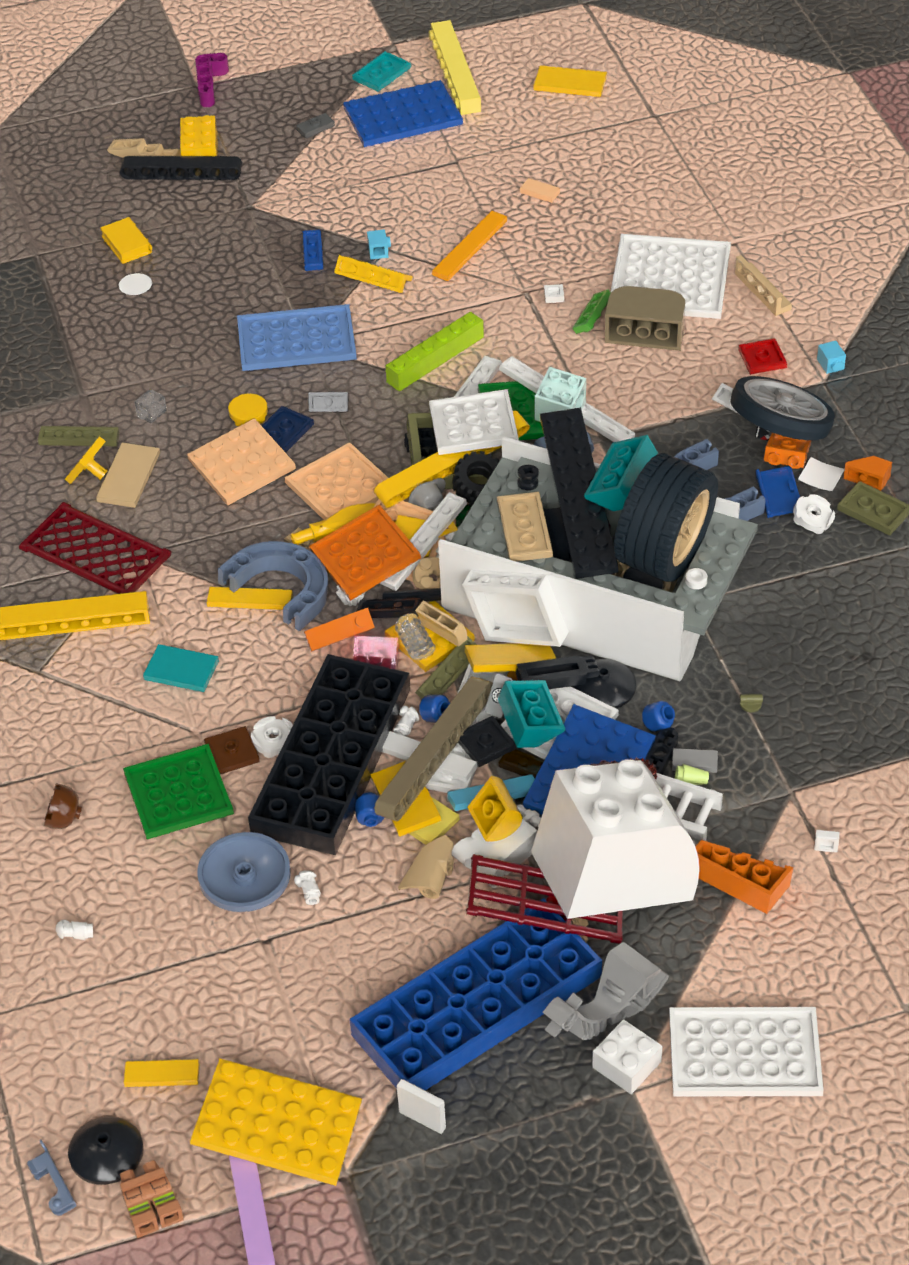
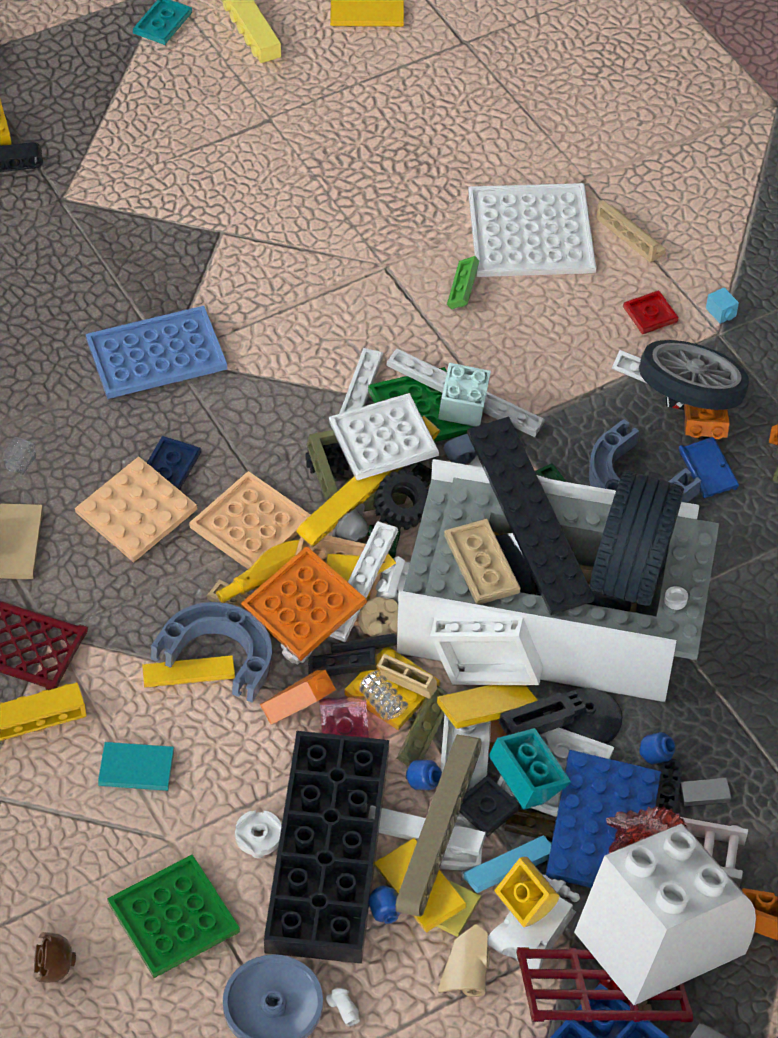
camera: 15 degrees left, 5 degrees up
(233, 750) = (219, 855): reddish brown plate -> none
(247, 407) = (126, 445): yellow tile -> none
(312, 250) = (145, 244): blue tile -> none
(315, 125) = (108, 93): dark grey plate -> none
(328, 401) = (211, 424): panel -> none
(371, 273) = (217, 265): yellow fence -> none
(378, 244) = (215, 229): medium azure brick -> none
(402, 113) = (198, 68): blue plate -> none
(406, 723) = (396, 797): white arm -> none
(434, 351) = (310, 351): lime brick -> none
(469, 246) = (312, 219): light orange tile -> none
(493, 706) = (488, 740): light grey sticker -> none
(528, 477) = (471, 503): black wheel -> none
(539, 190) = (369, 144): light nougat tile -> none
(554, 293) = (417, 265): white plate -> none
(619, 471) = (573, 489): teal slope -> none
(645, 318) = (524, 285): dark tan brick -> none
(691, 775) = (706, 810): yellowish green cone -> none
(751, 702) = (745, 716): olive plate -> none
(816, 523) = (744, 495): white plate -> none
(821, 474) = (745, 441): white sticker -> none

